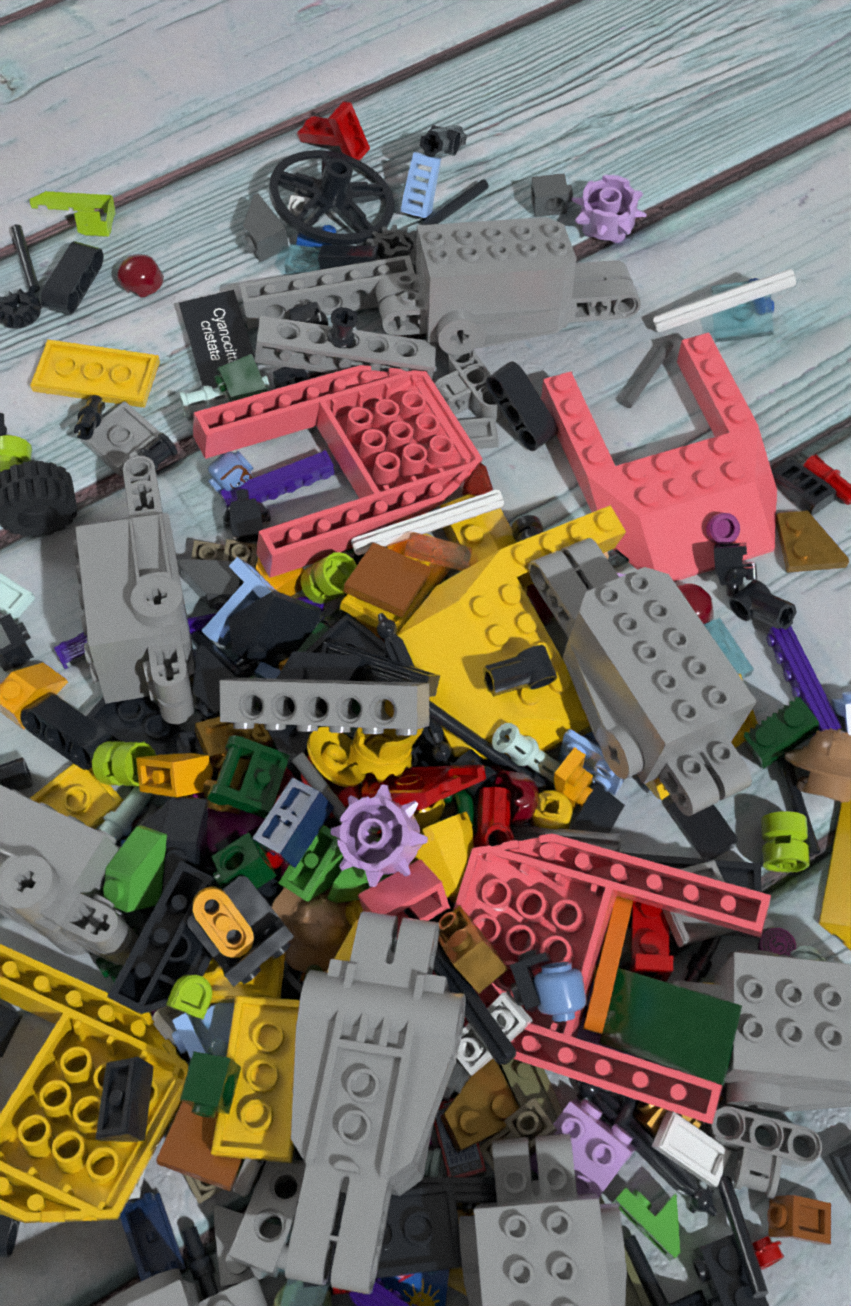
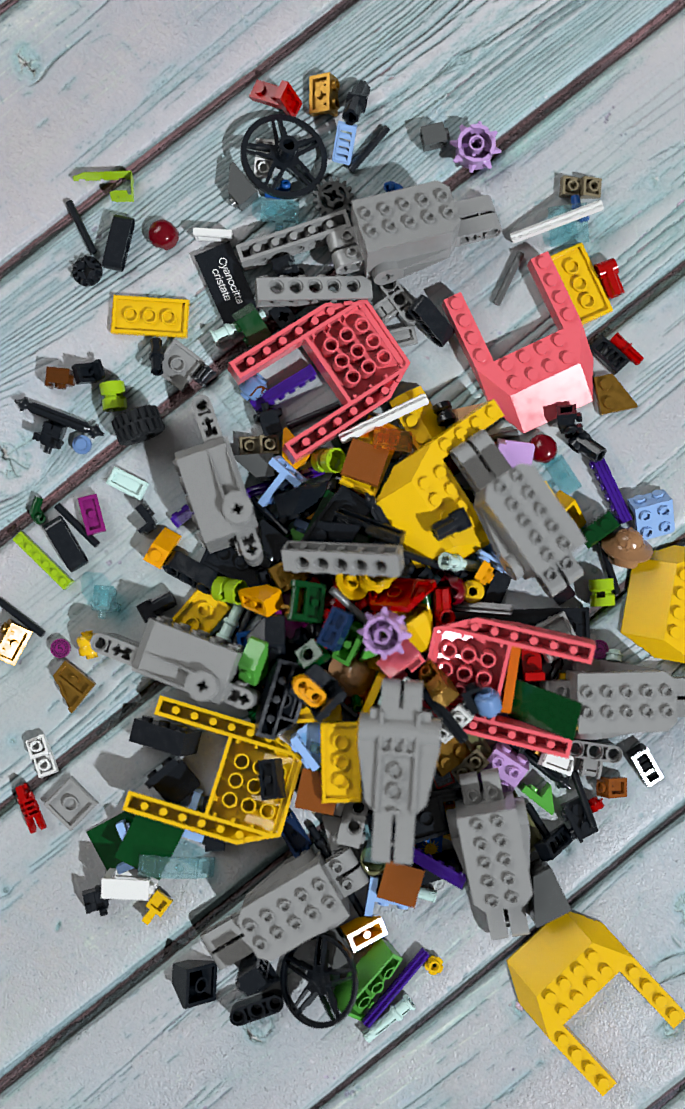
camera: 10 degrees left, 25 degrees up
(191, 996) = (296, 725): lime tile -> none
(210, 1084) = (317, 773): dark green brick -> none
(211, 278) = (213, 235): none -> white tile
(343, 255) = (303, 210): black slope -> none
(343, 323) = (311, 287): black bush -> none
(400, 137) = (323, 94): none -> pearl gold bracket
(478, 482) = (408, 378): clear red tile -> none
(723, 528) = (561, 396): magenta tile -> none
(746, 268) = (585, 187): none -> dark tan slope
(764, 390) = (582, 283): none -> yellow tile
(802, 378) = (608, 274): none -> red piece

